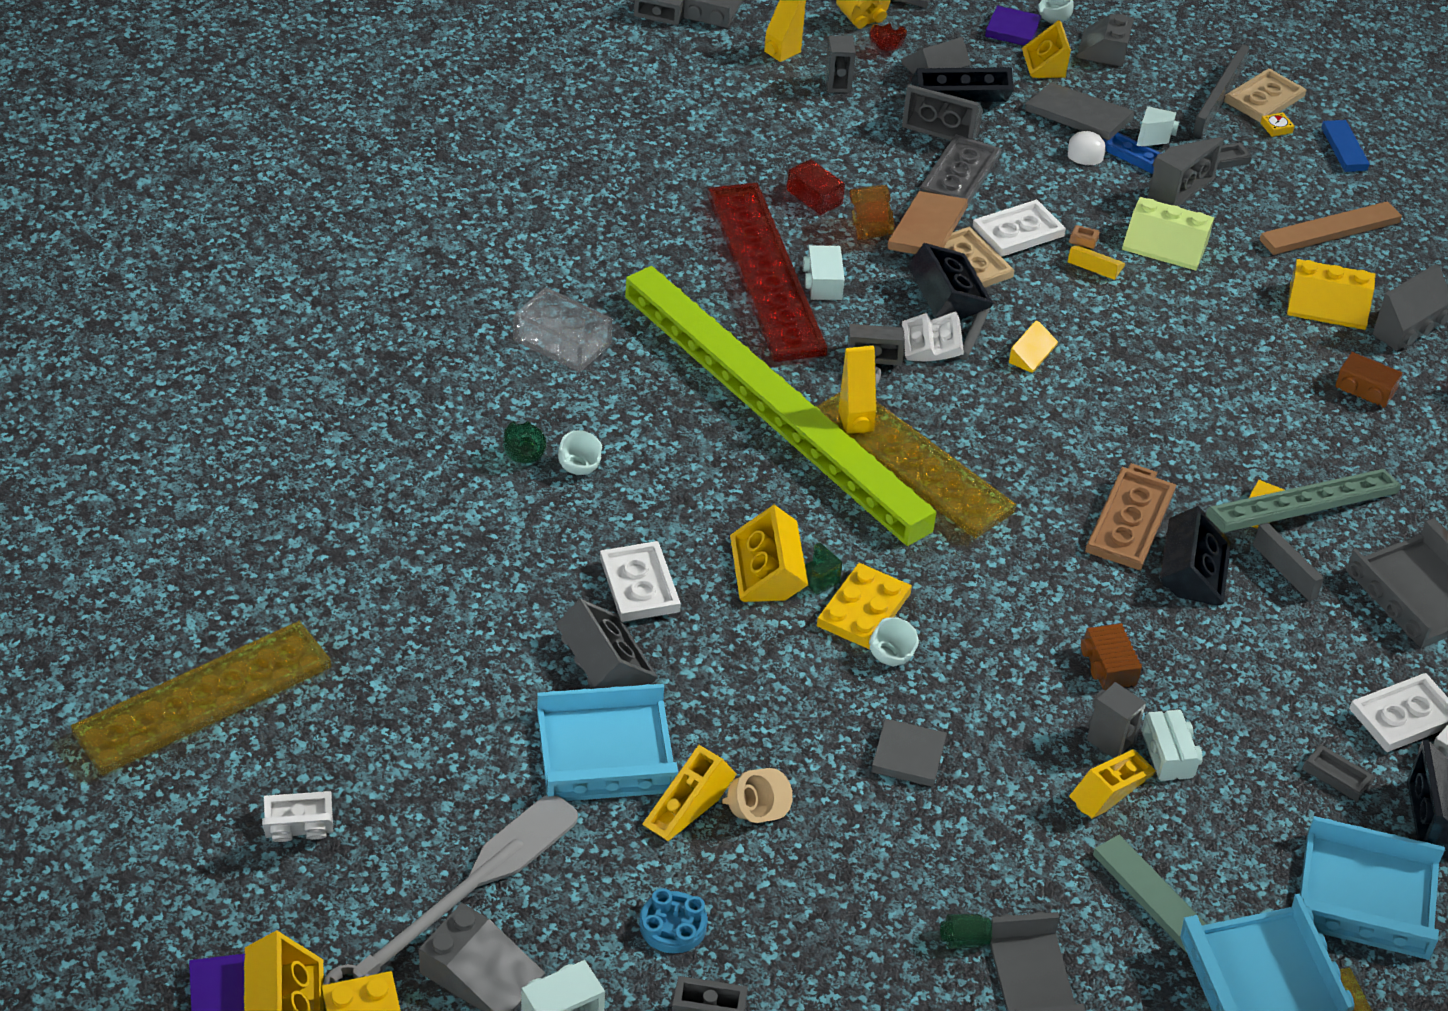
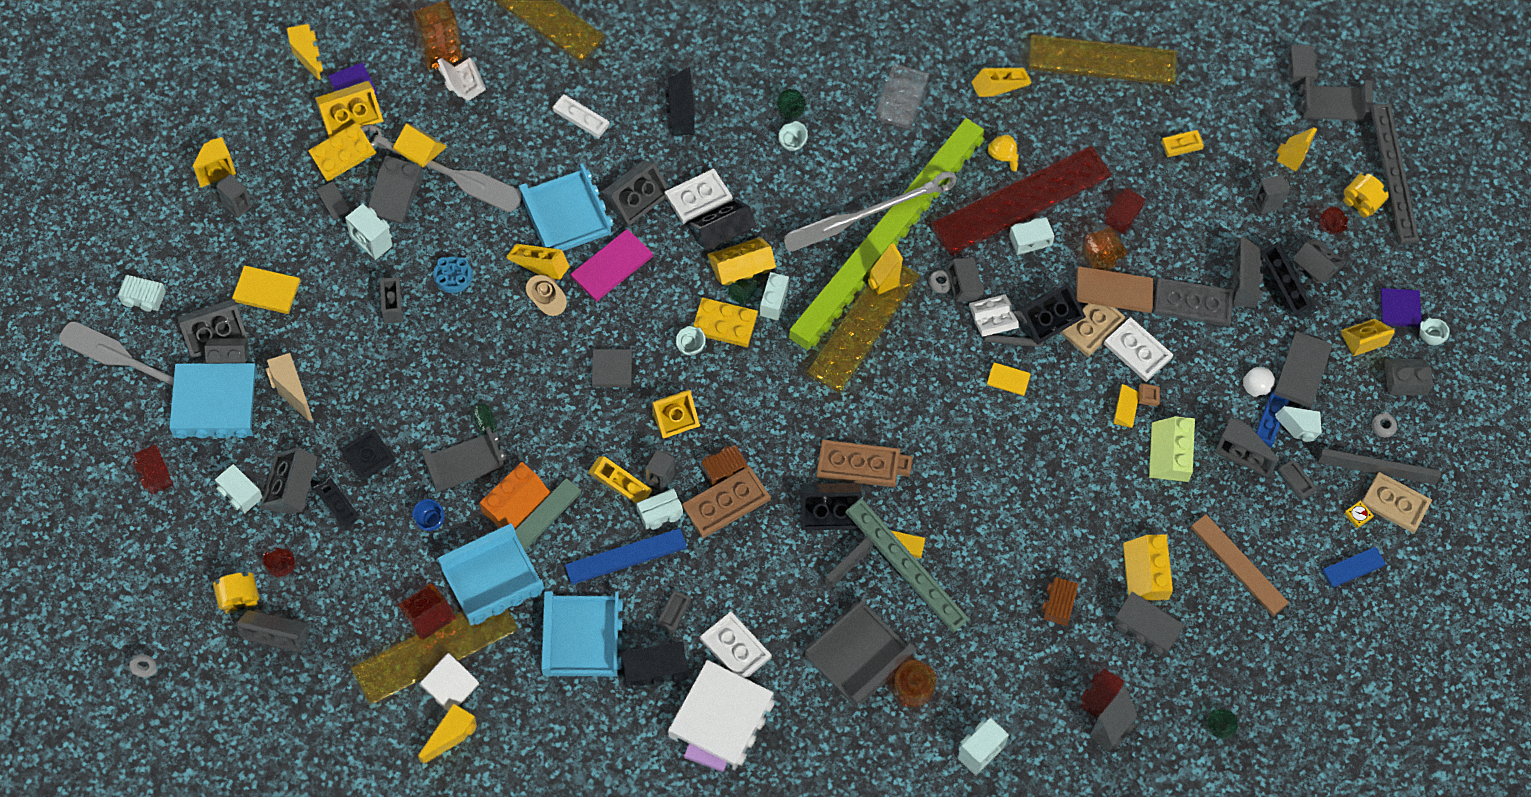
camera: 75 degrees right, 20 degrees up
(220, 807) = (437, 34): none -> clear orange brick
(406, 909) = (418, 145): none -> yellow slope
(436, 686) = (581, 116): none -> white plate
(473, 552) = (680, 103): none -> black slope
(574, 243) = (999, 80): none -> yellow slope
(578, 151) = (1102, 60): none -> clear yellow plate
(683, 262) = (1004, 149): none -> yellow hat
(700, 564) = (722, 224): none -> black slope
(724, 712) = (611, 265): none -> dark pink tile
(732, 119) = (1182, 143): none -> yellow plate
(741, 393) = (837, 223): none -> light grey piece
(844, 535) = (774, 296): none -> light aqua brick
(1011, 691) = (675, 414): none -> yellow slope
(1119, 923) = (514, 497): none -> orange slope
(1162, 82) = (1379, 430): none -> light grey piece
(1173, 669) = (726, 502): none -> medium nougat plate
(1240, 810) = (625, 556): none -> blue tile

